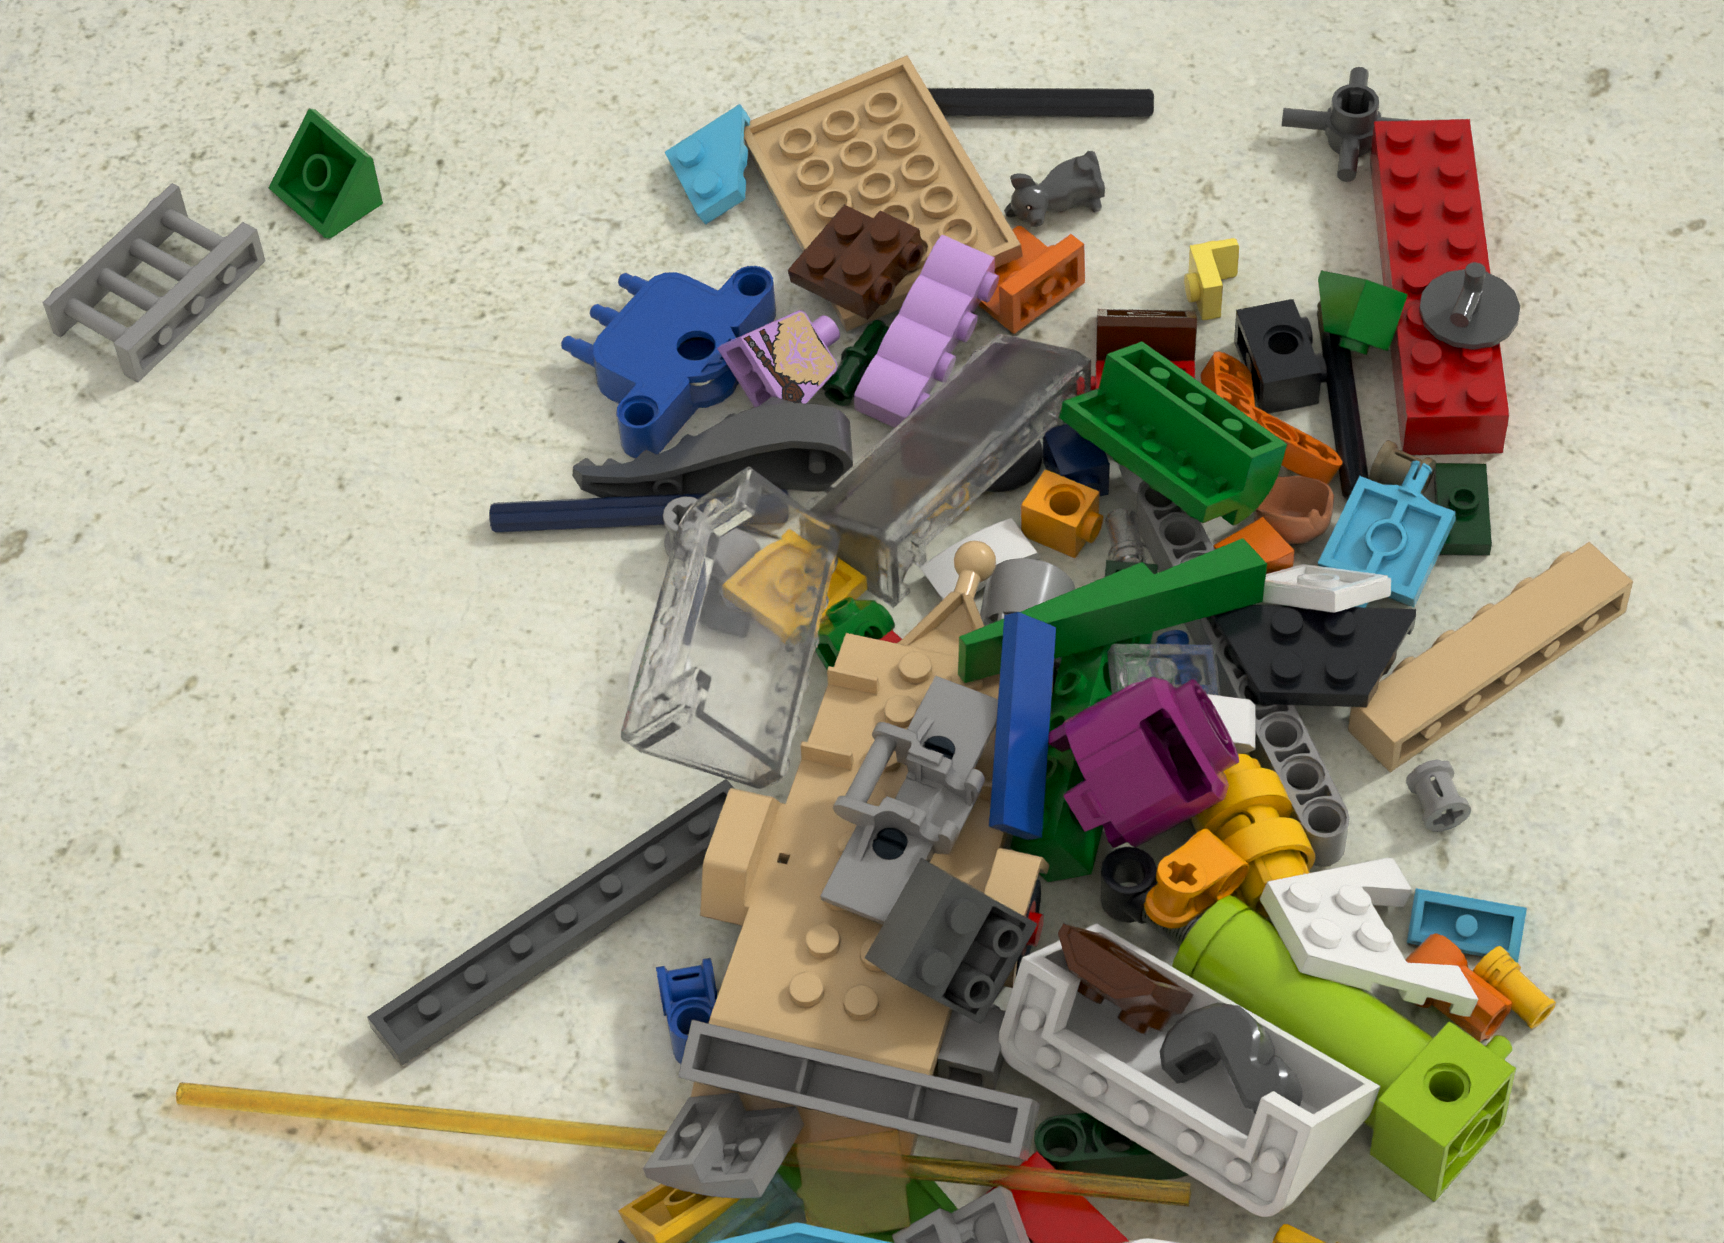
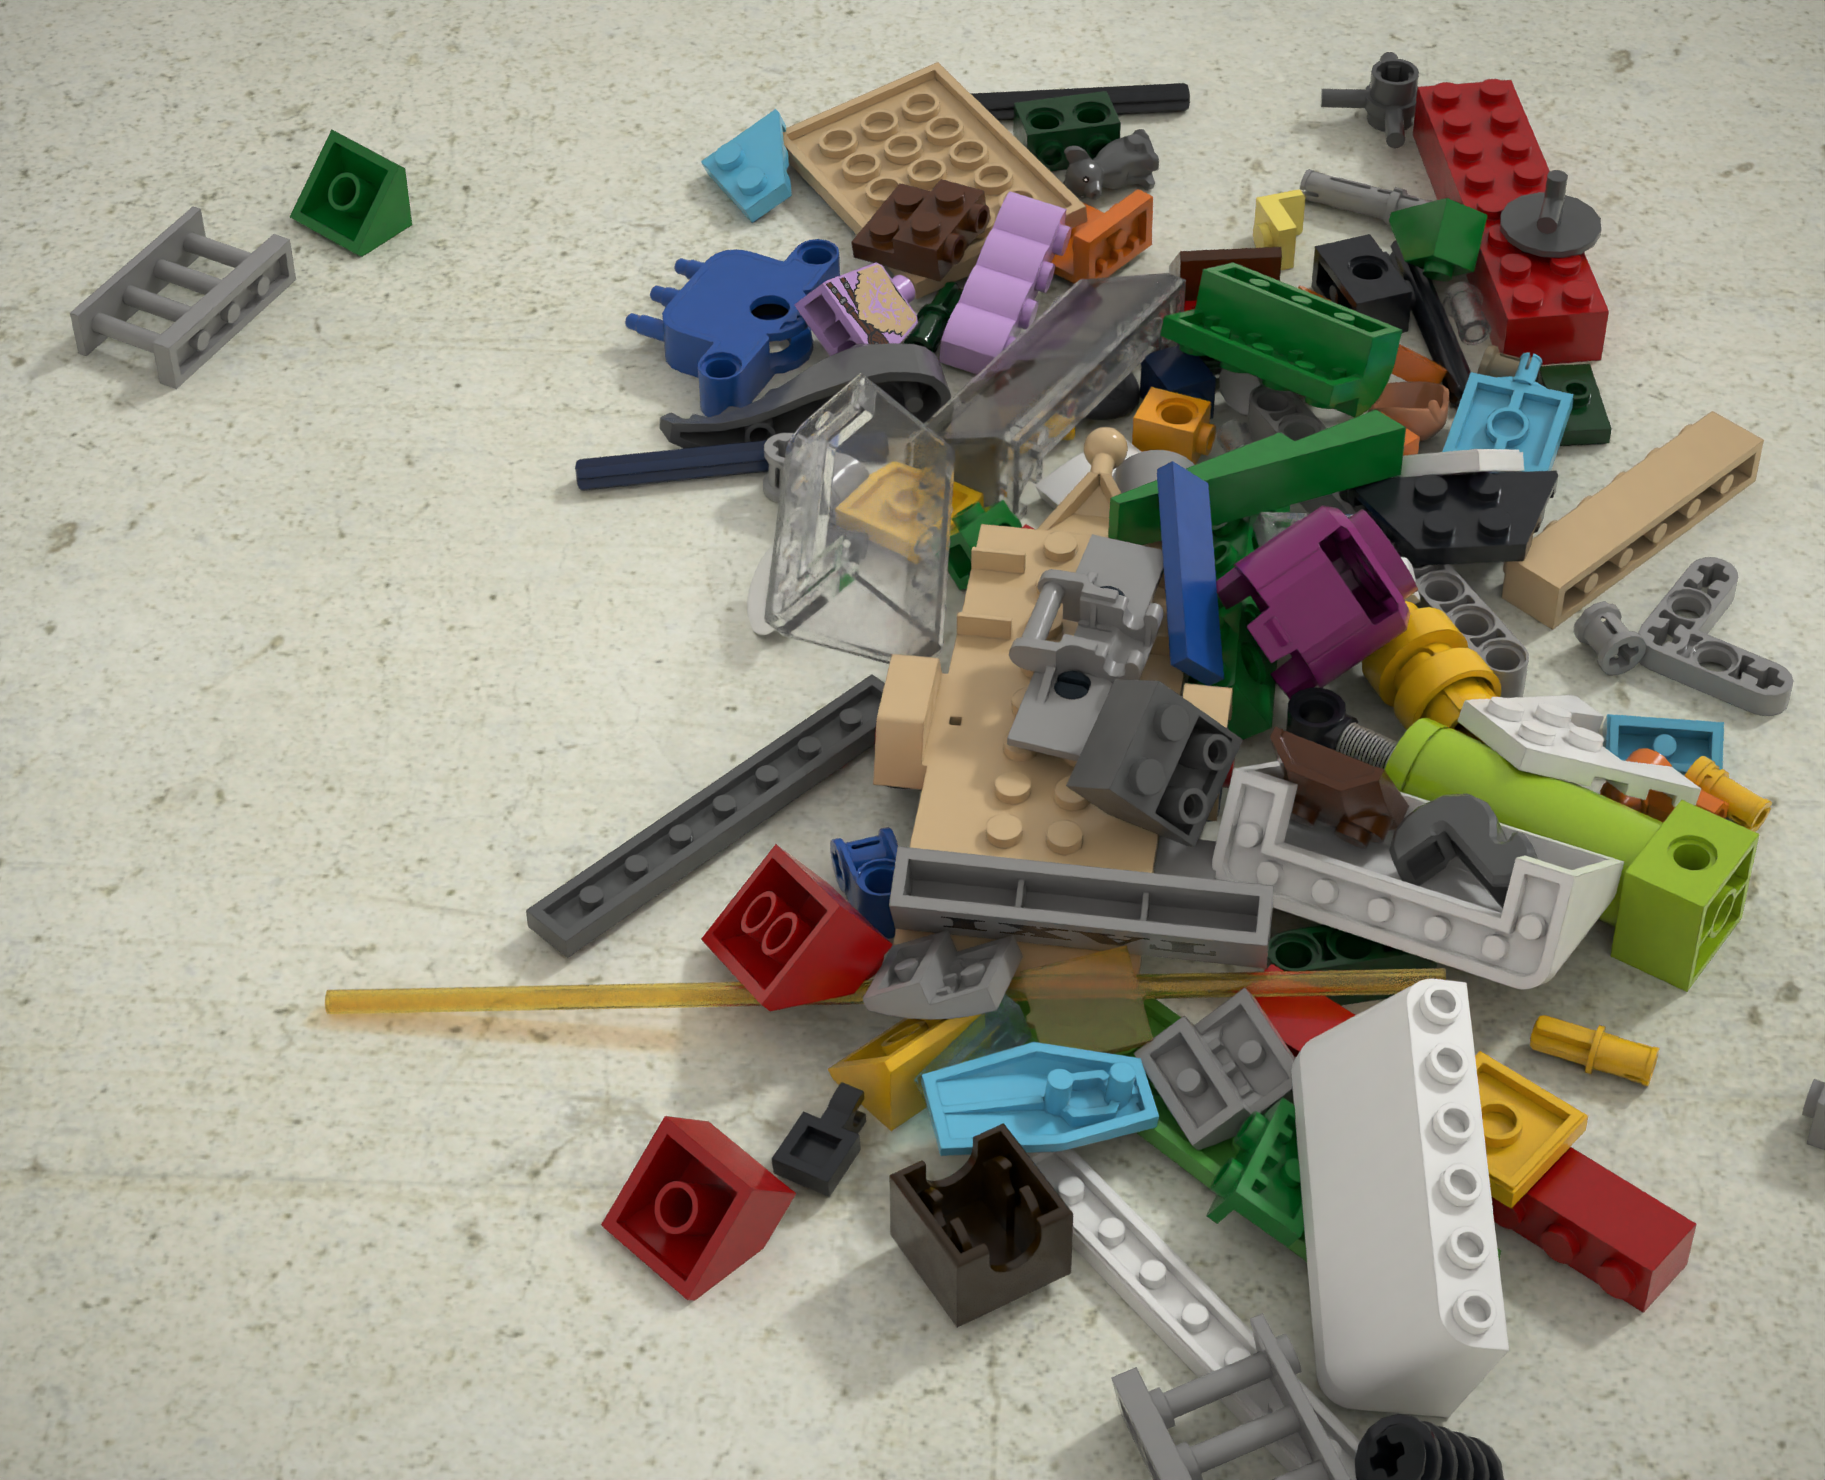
camera: 10 degrees left, 10 degrees down
(601, 1080) = (794, 937): none -> red slope
(1021, 141) = (1059, 122): none -> dark green brick
(1194, 880) = (1387, 705): light orange piece -> none
(1304, 245) = (1356, 196): none -> light grey pin
(1376, 382) = (1465, 306): none -> clear pin
(1520, 810) = (1692, 644): none -> light grey beam

